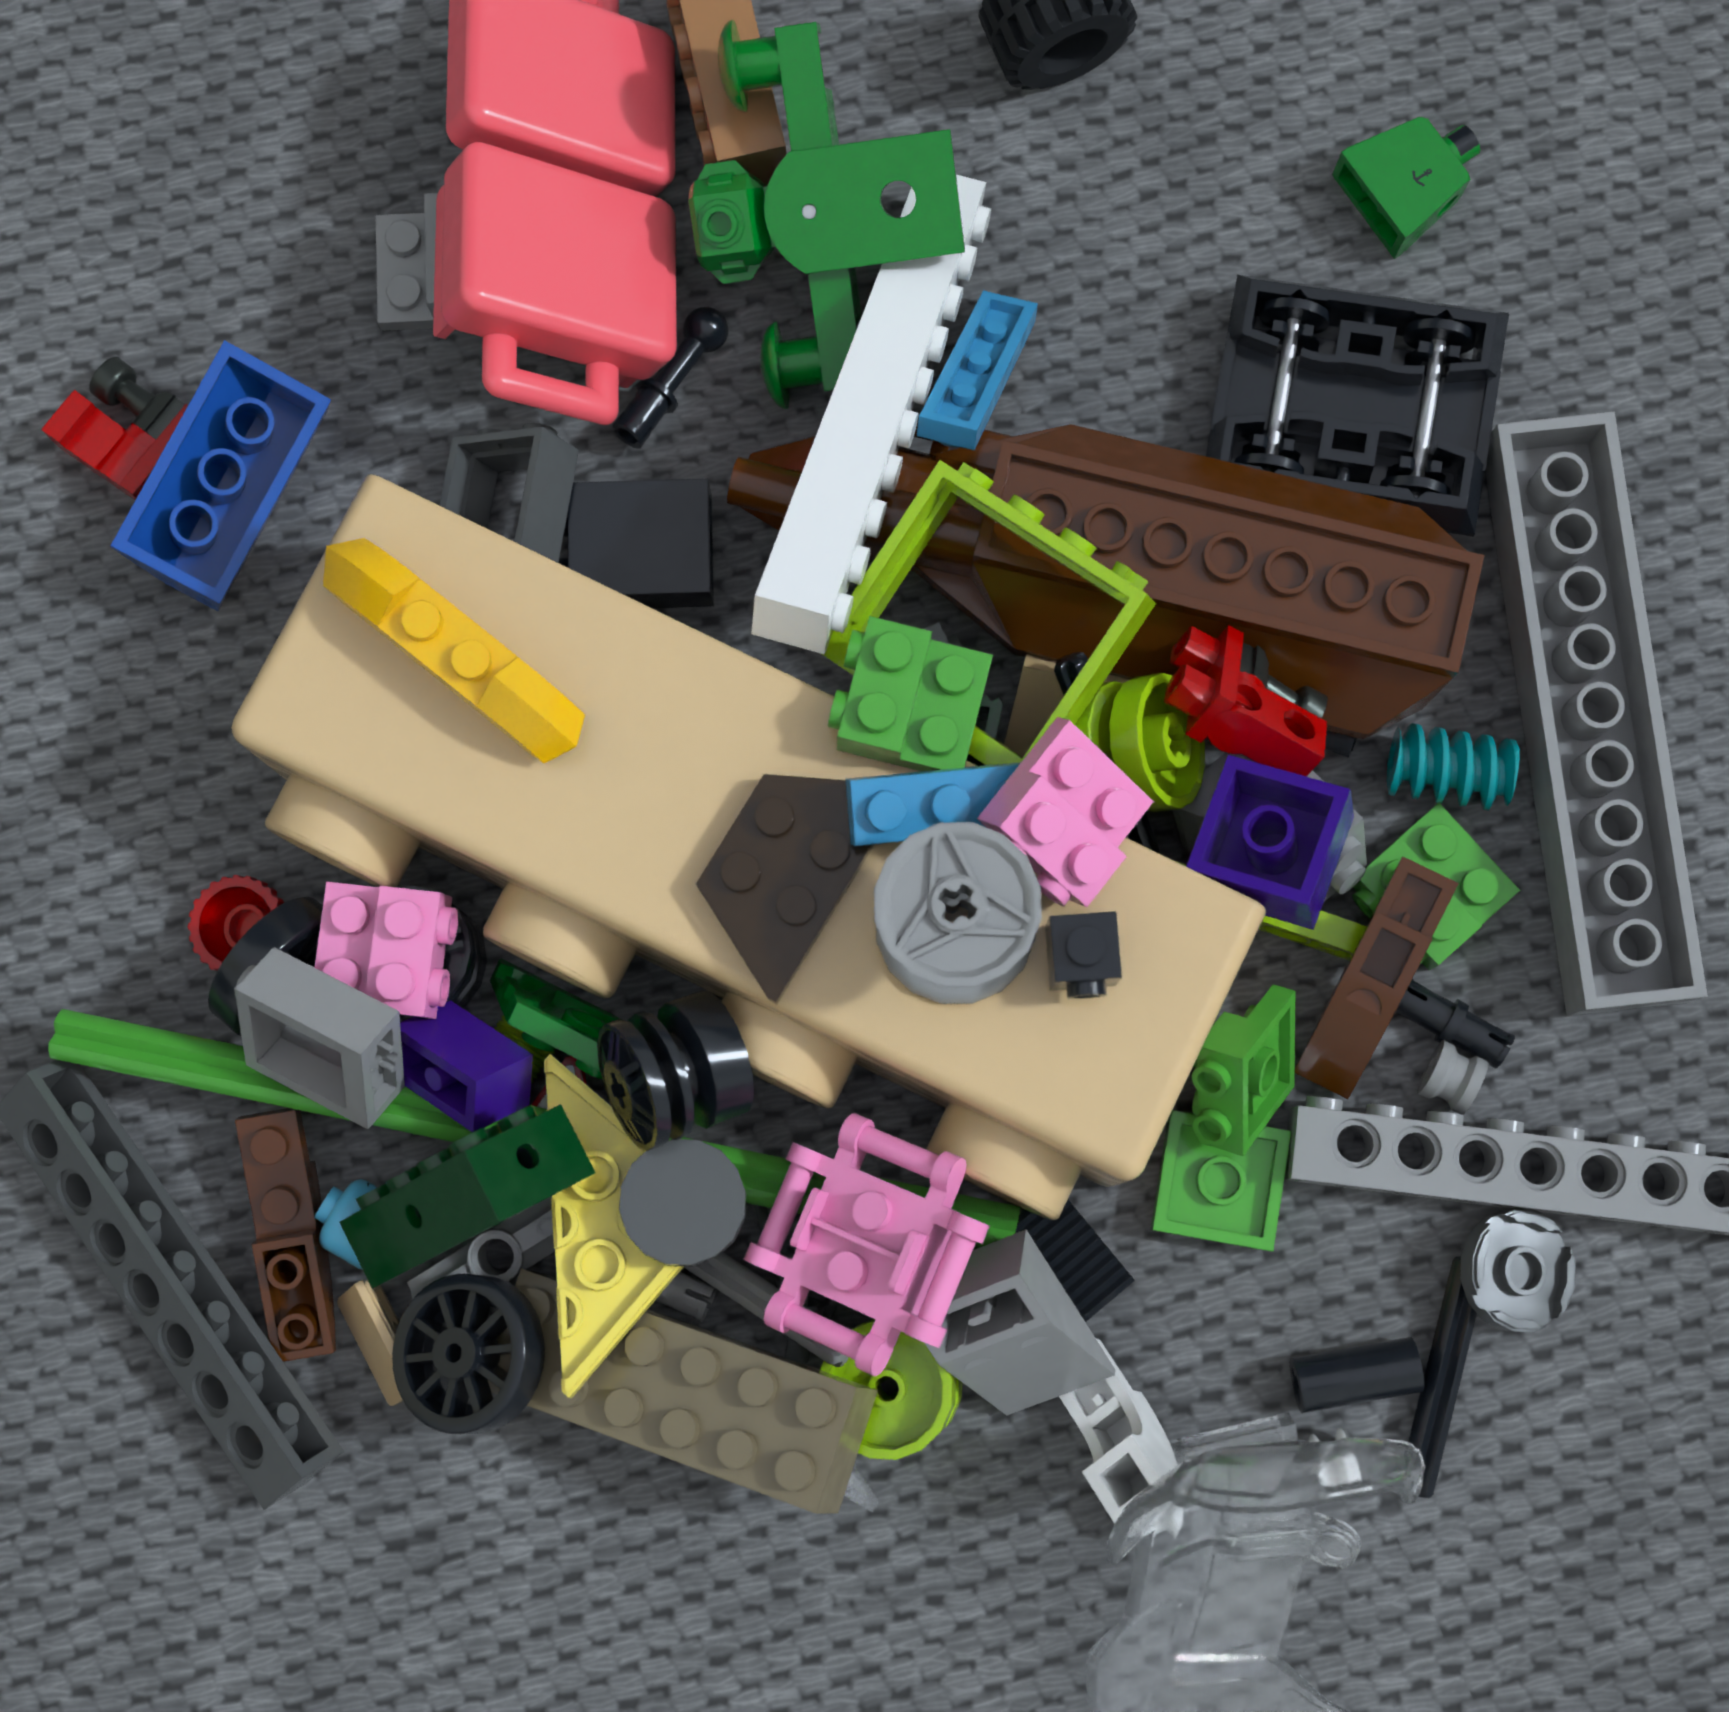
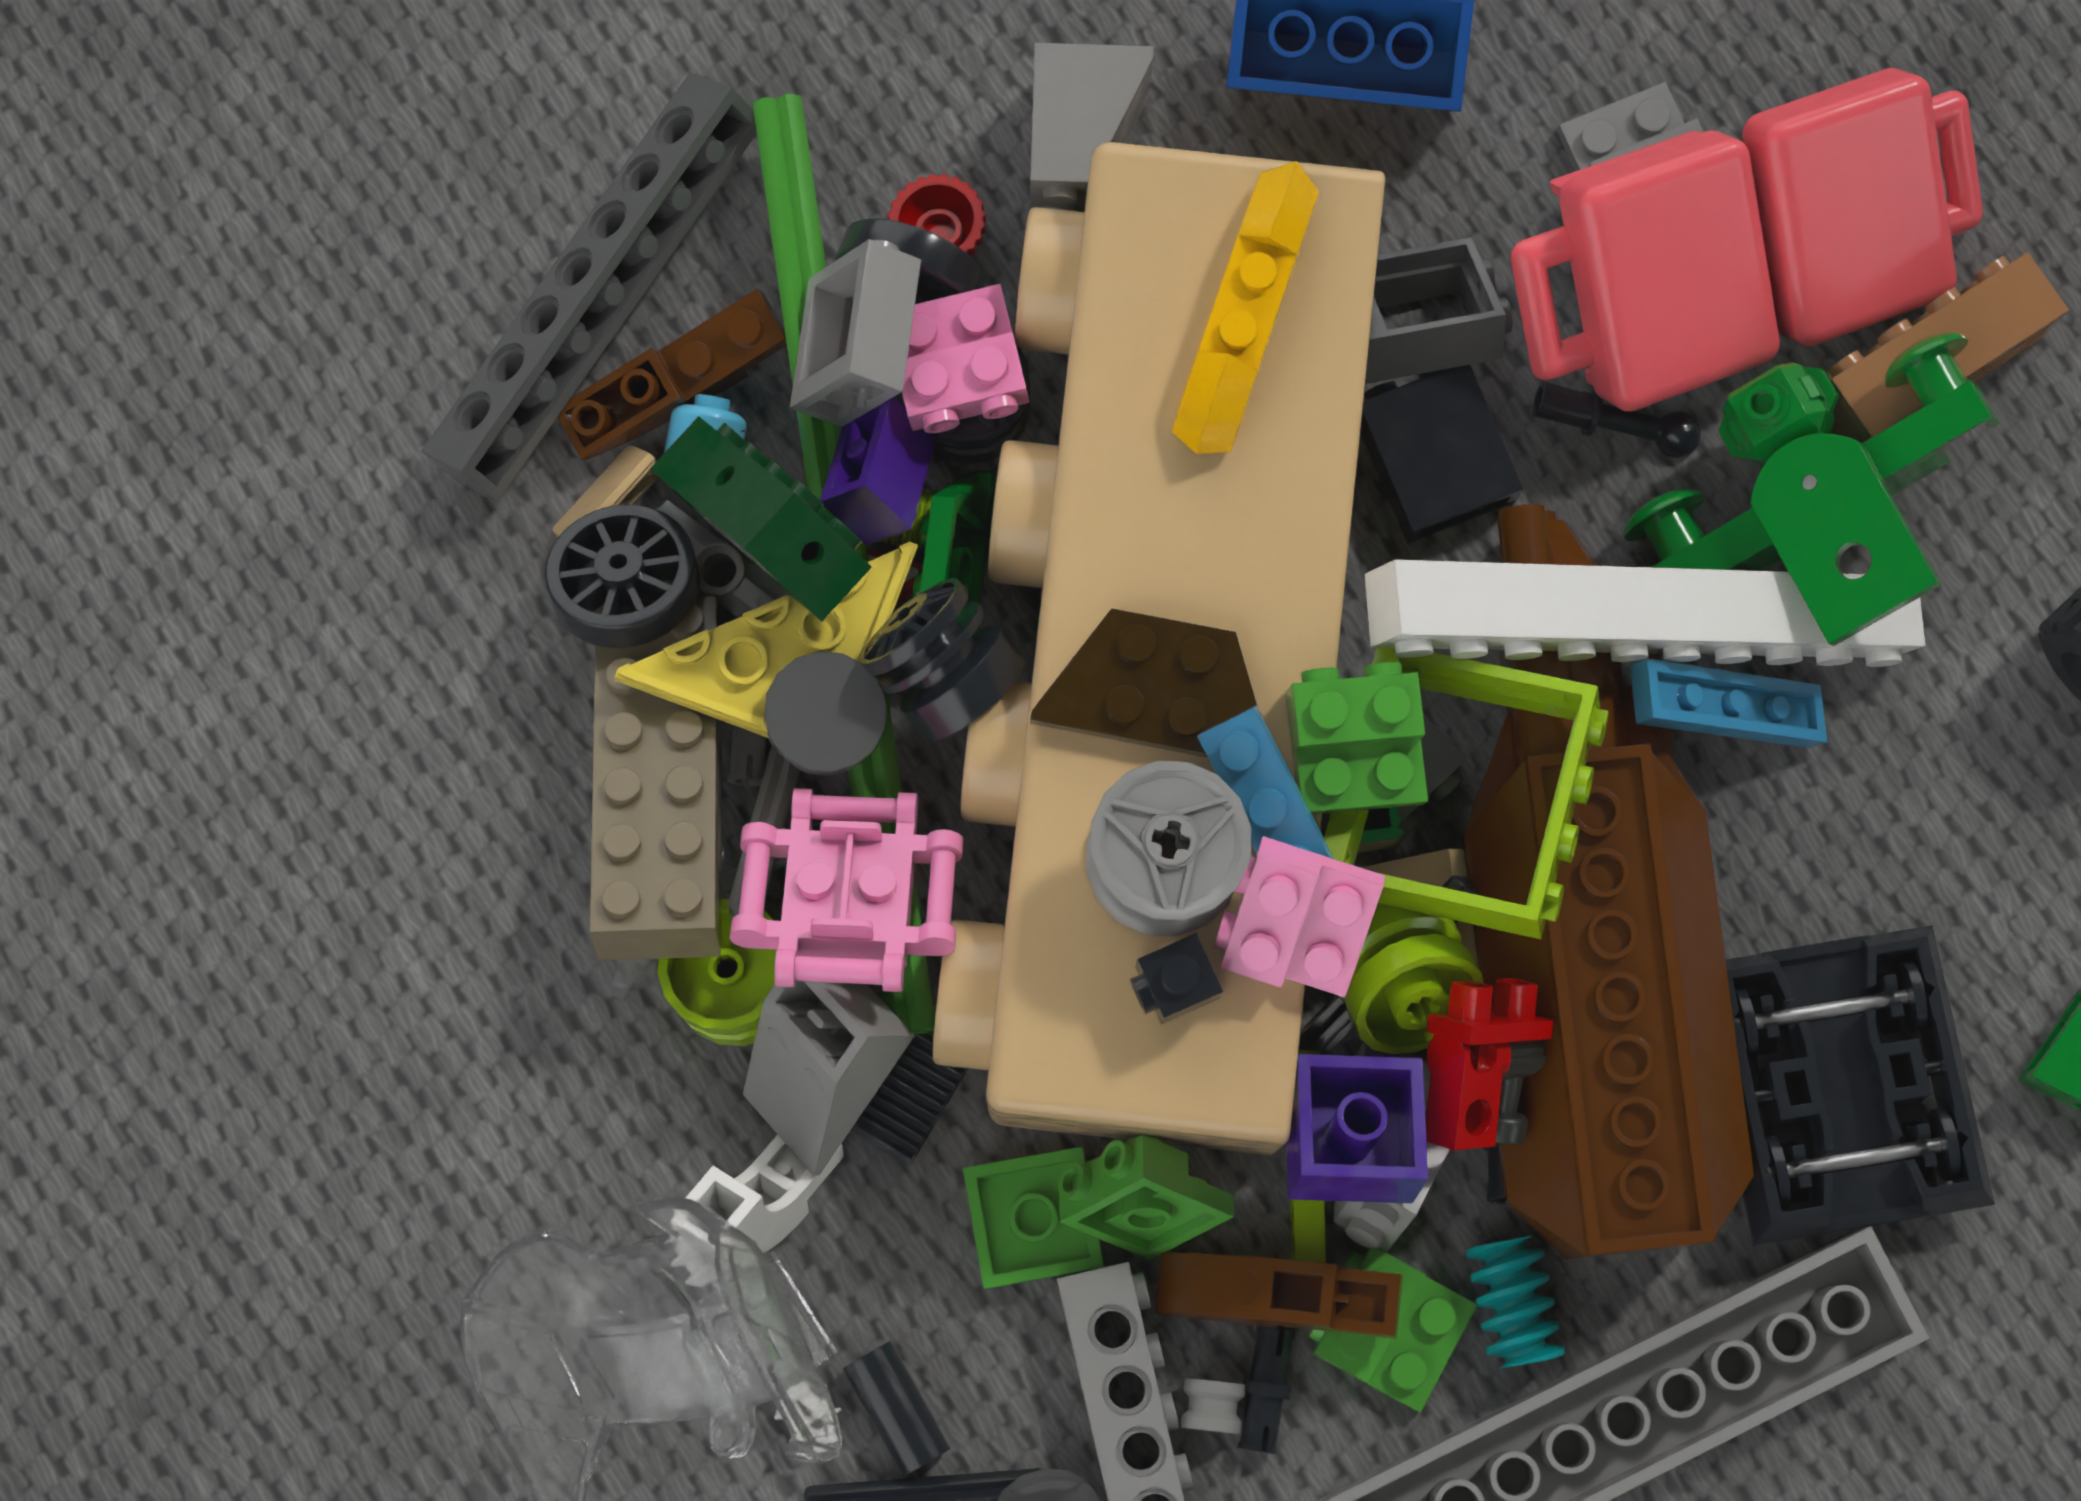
camera: 65 degrees right, 0 degrees up
(186, 751) = (1079, 102): none -> light grey slope

